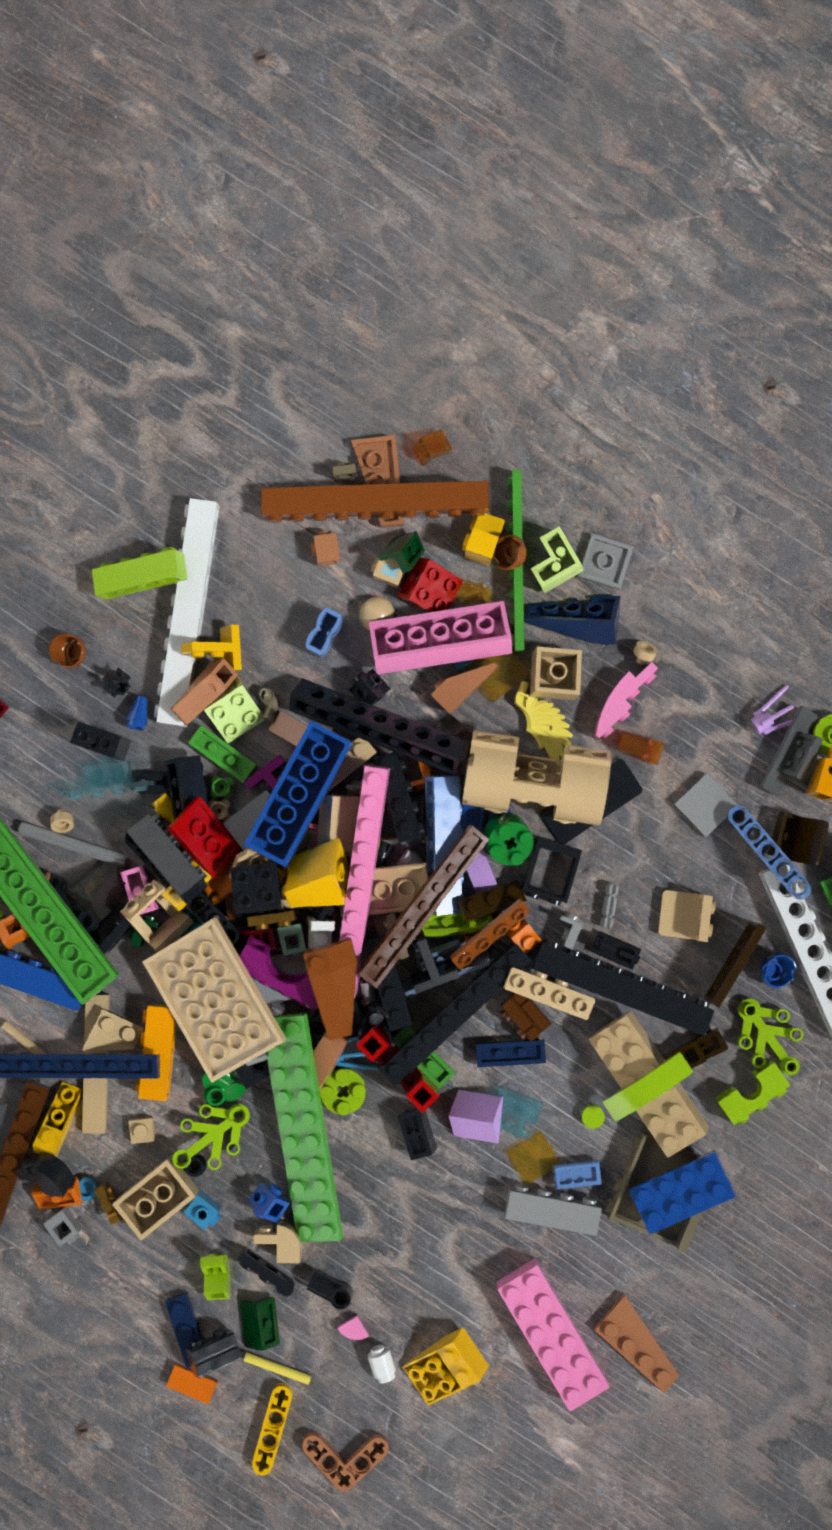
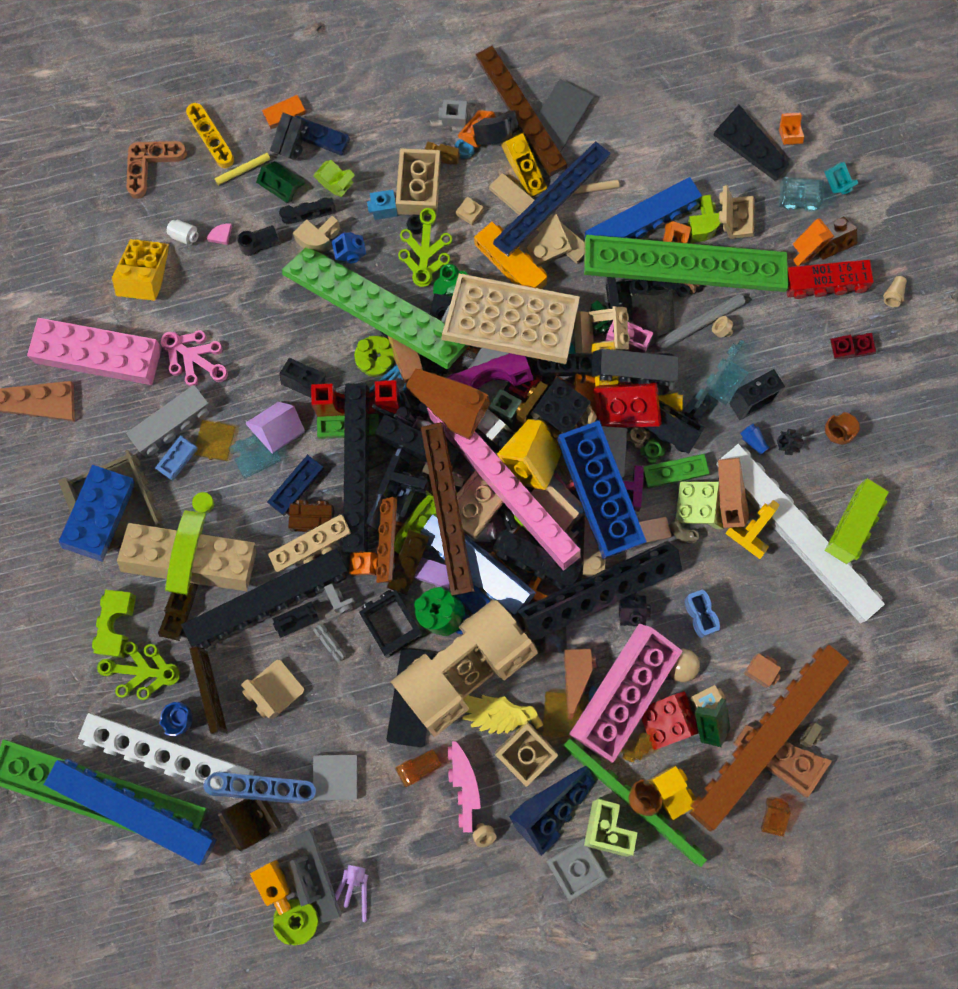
camera: 135 degrees right, 10 degrees down
(481, 1248) = (192, 355): none -> bright pink plant

